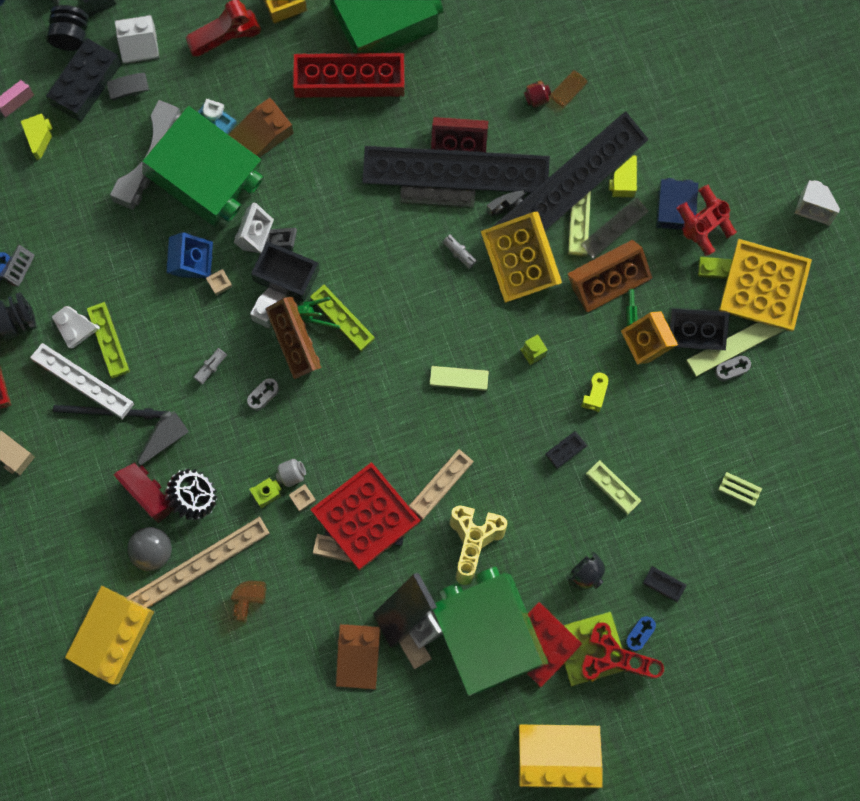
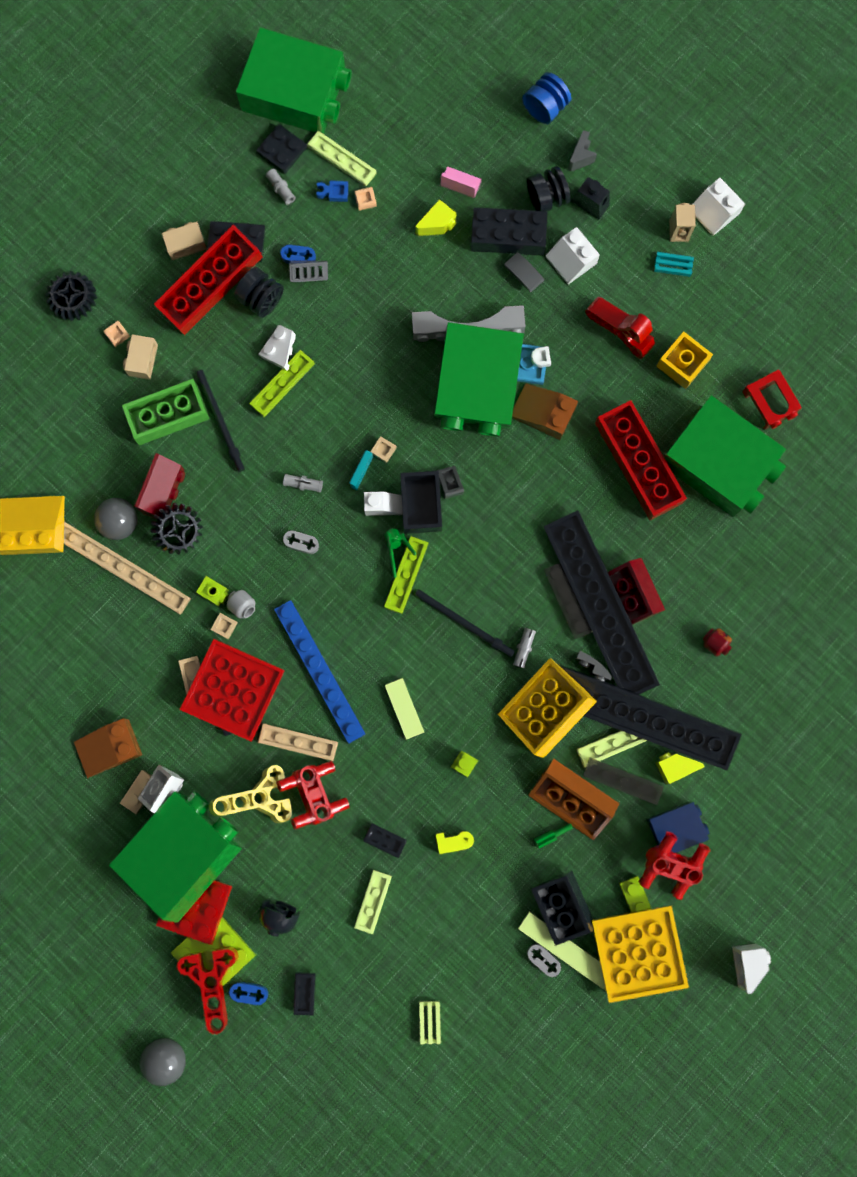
camera: 65 degrees right, 5 degrees up
(76, 453) = (165, 412): none -> bright green brick
(82, 381) = (233, 381): white plate -> none
(165, 433) = (222, 477): dark grey slope -> none
(189, 256) = (393, 411): blue slope -> none
(227, 310) = (361, 469): none -> teal tile
(248, 593) = (116, 623): clear orange brick -> none
(253, 229) = (446, 454): white slope -> none
(293, 337) = (361, 542): dark orange slope -> none
(387, 434) = (320, 672): none -> blue plate
(404, 610) = (159, 769): black tile -> none
(442, 273) = (496, 644): none -> black bar
(495, 490) = (312, 795): none -> red piece
(560, 756) = (102, 974): yellow slope -> none
(568, 88) = (740, 668): clear orange tile -> none
(649, 337) = (528, 867): light orange brick -> none
(664, 739) = (162, 1062): none -> dark grey piece

